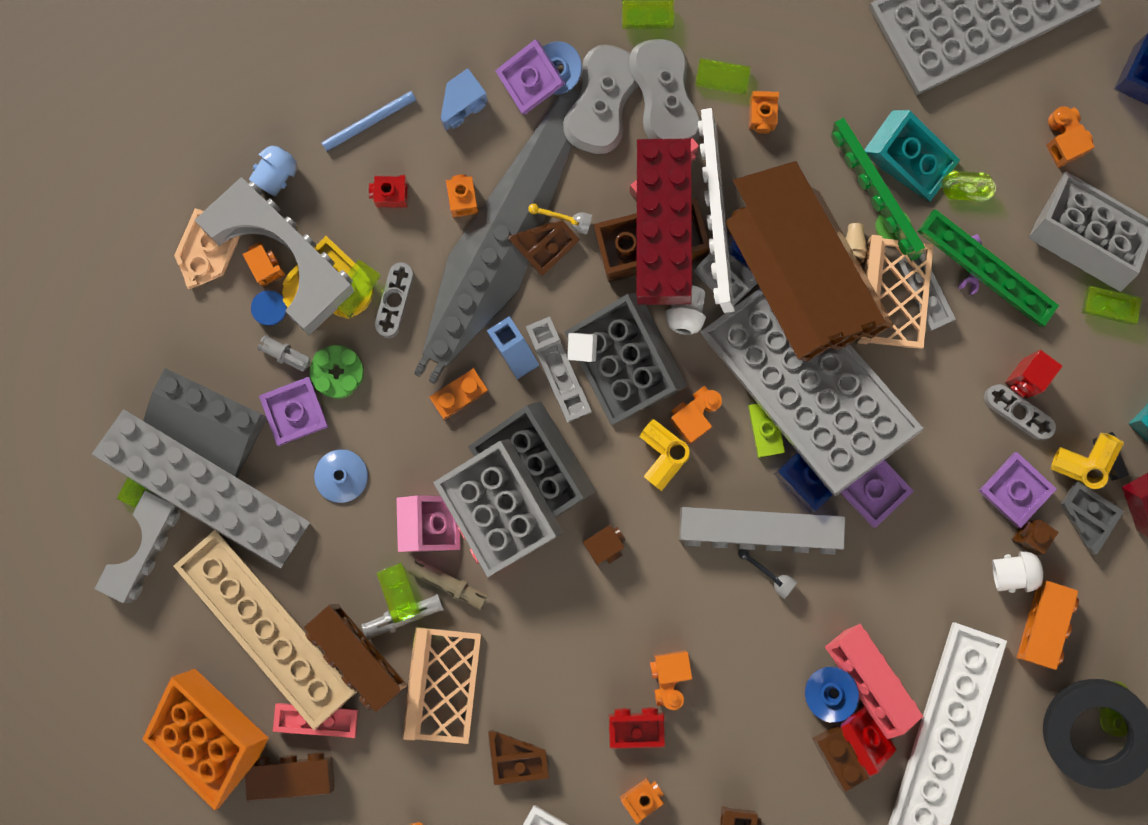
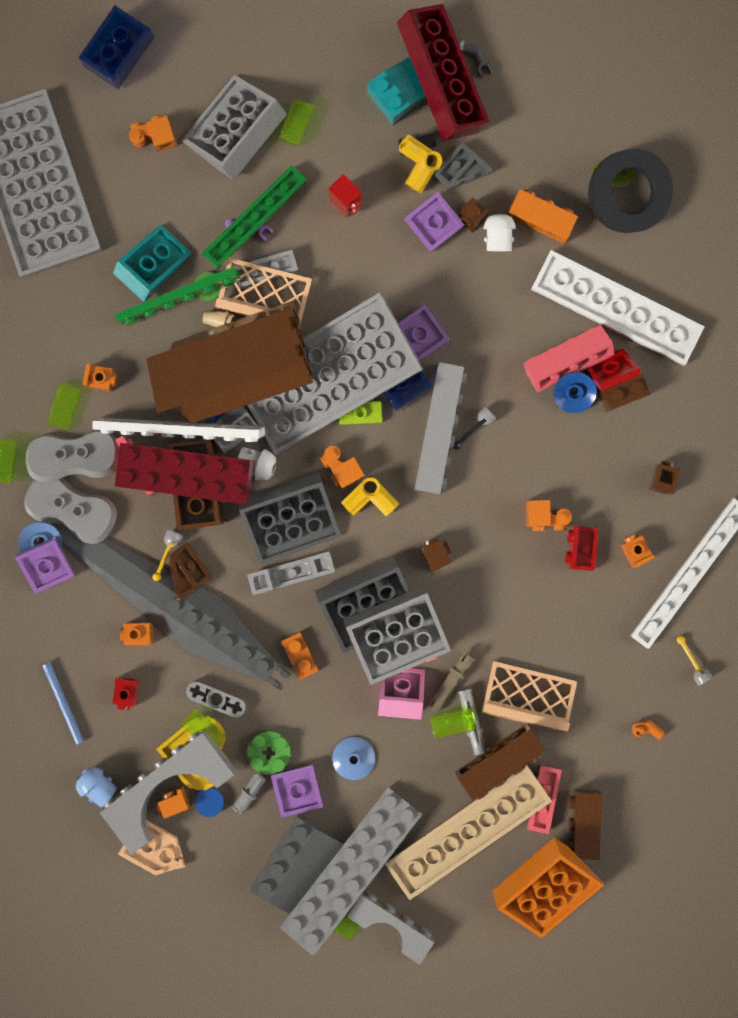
camera: 80 degrees left, 5 degrees up
(462, 98) = (54, 624): medium blue slope -> none
(513, 347) = (269, 607): medium blue slope -> none
(516, 760) = (594, 645): reddish brown wing -> none
(582, 347) = (275, 551): white tile -> none
(967, 186) = (184, 223): clear neon green plate -> none
(1031, 429) = (387, 202): light grey beam -> none

